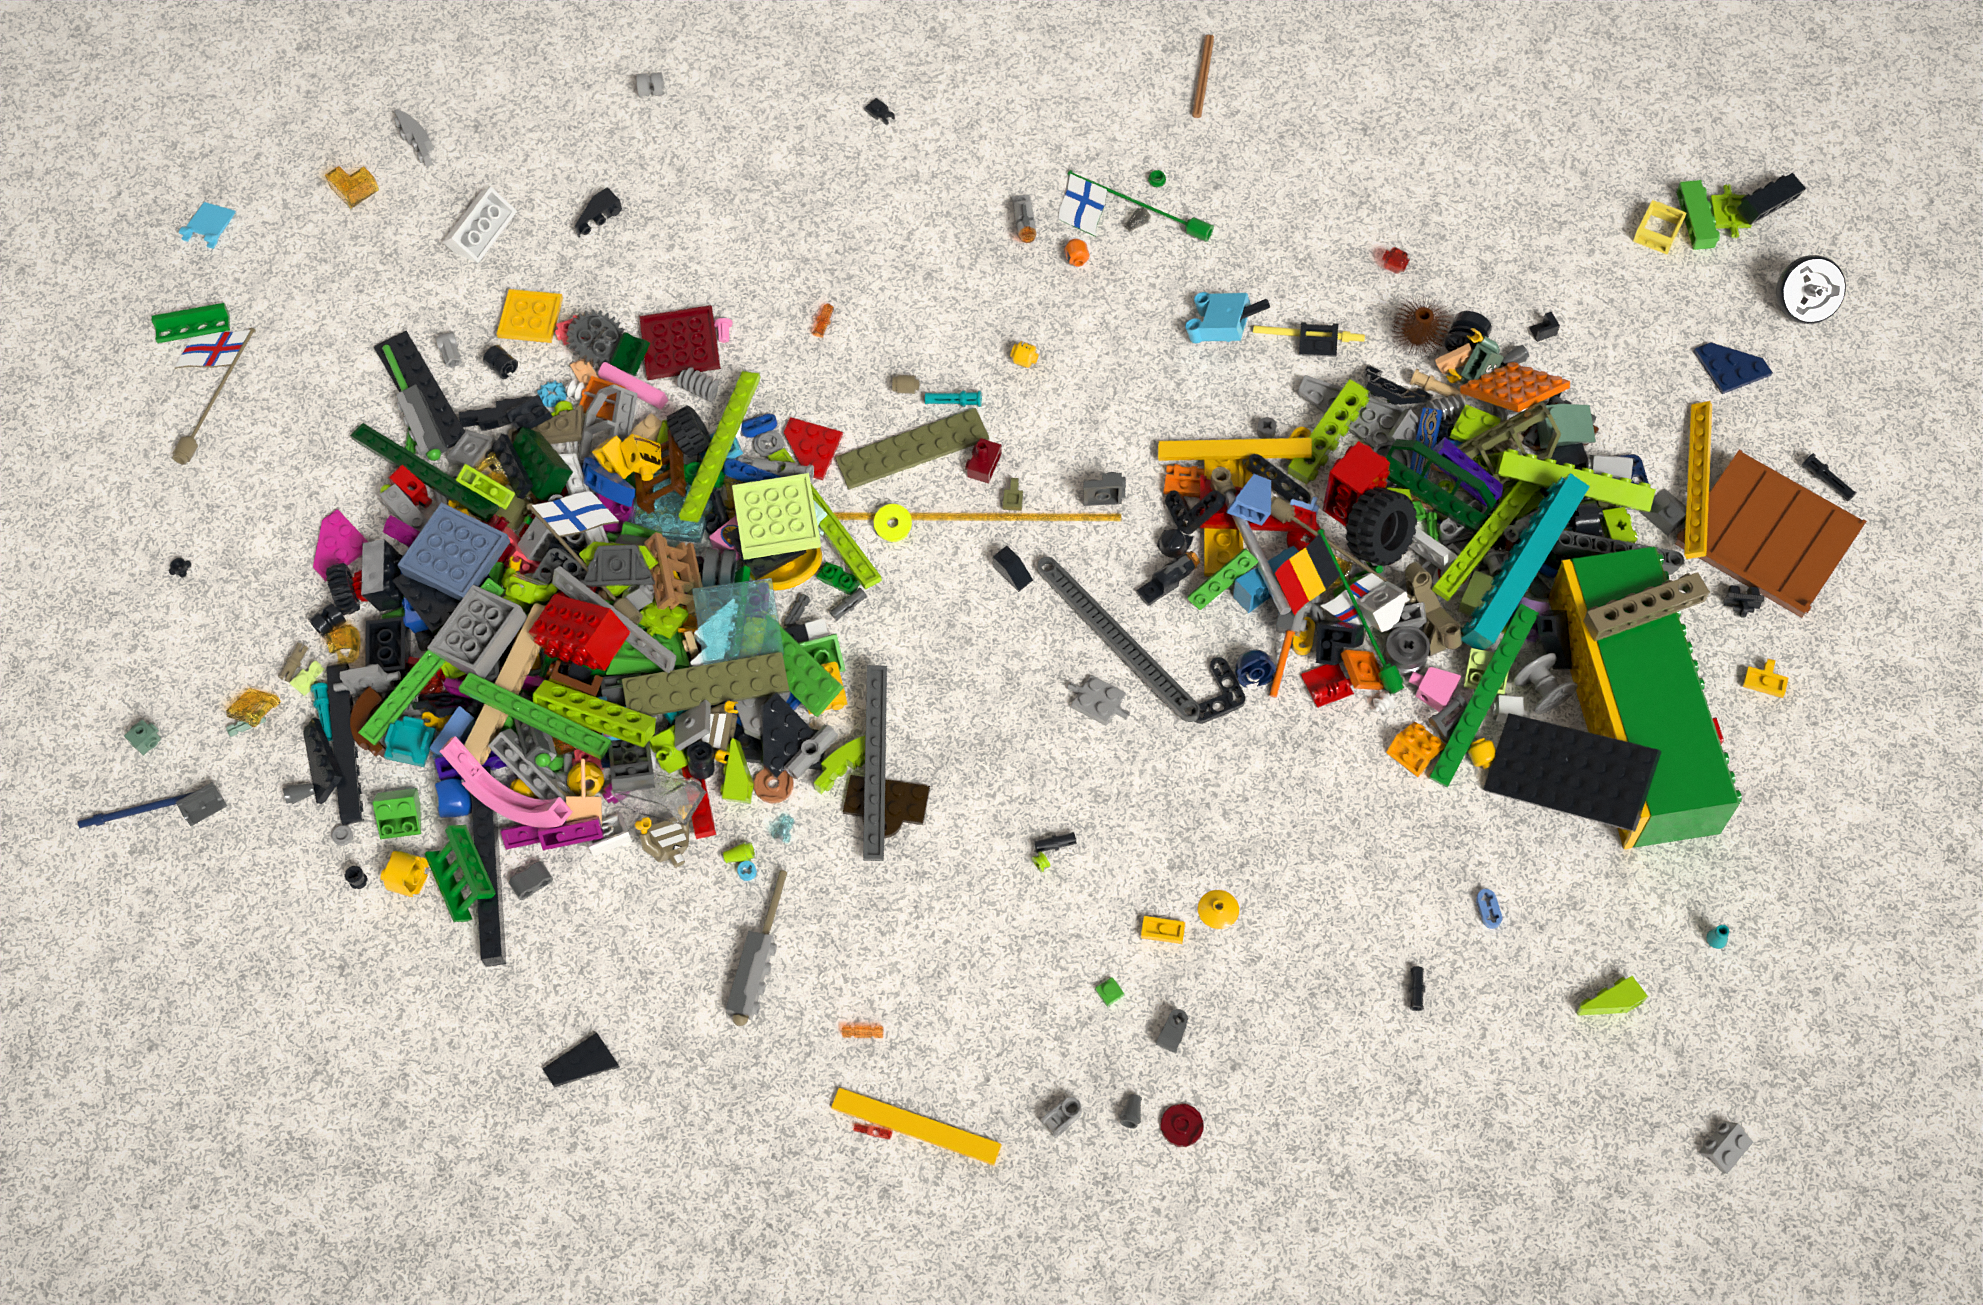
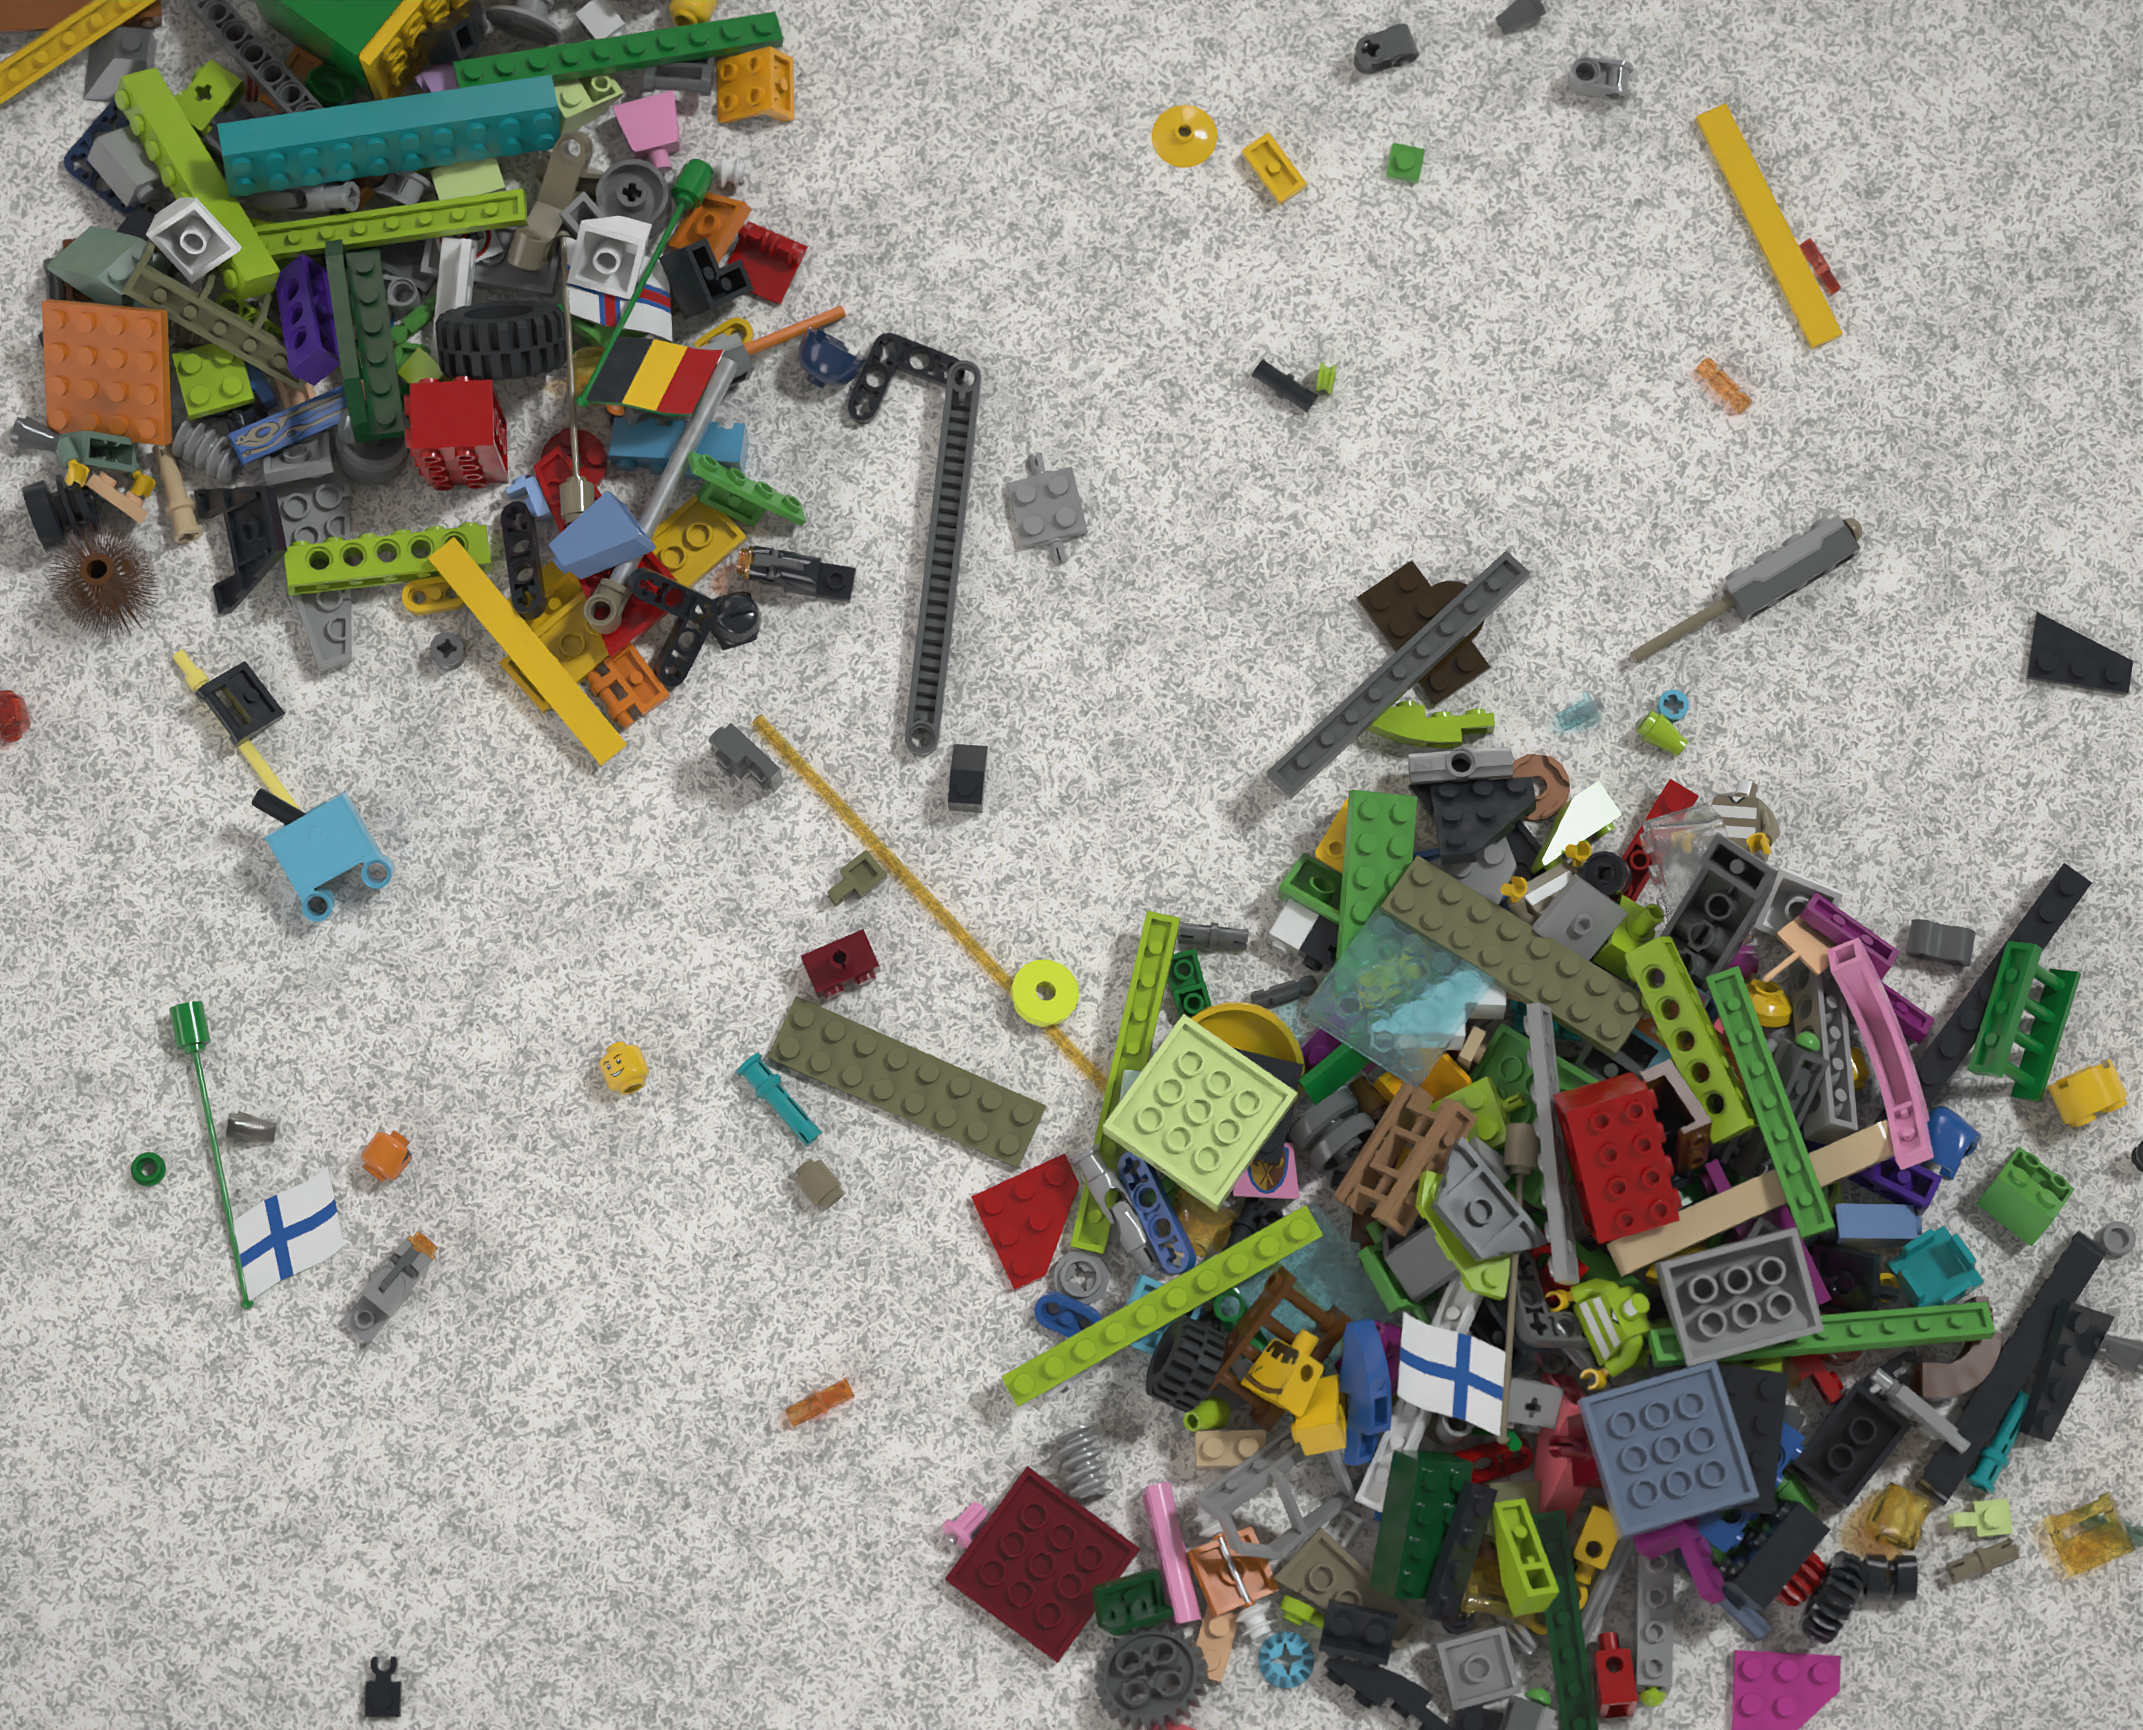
camera: 135 degrees left, 15 degrees up
(1546, 445) = (191, 238): none -> white slope

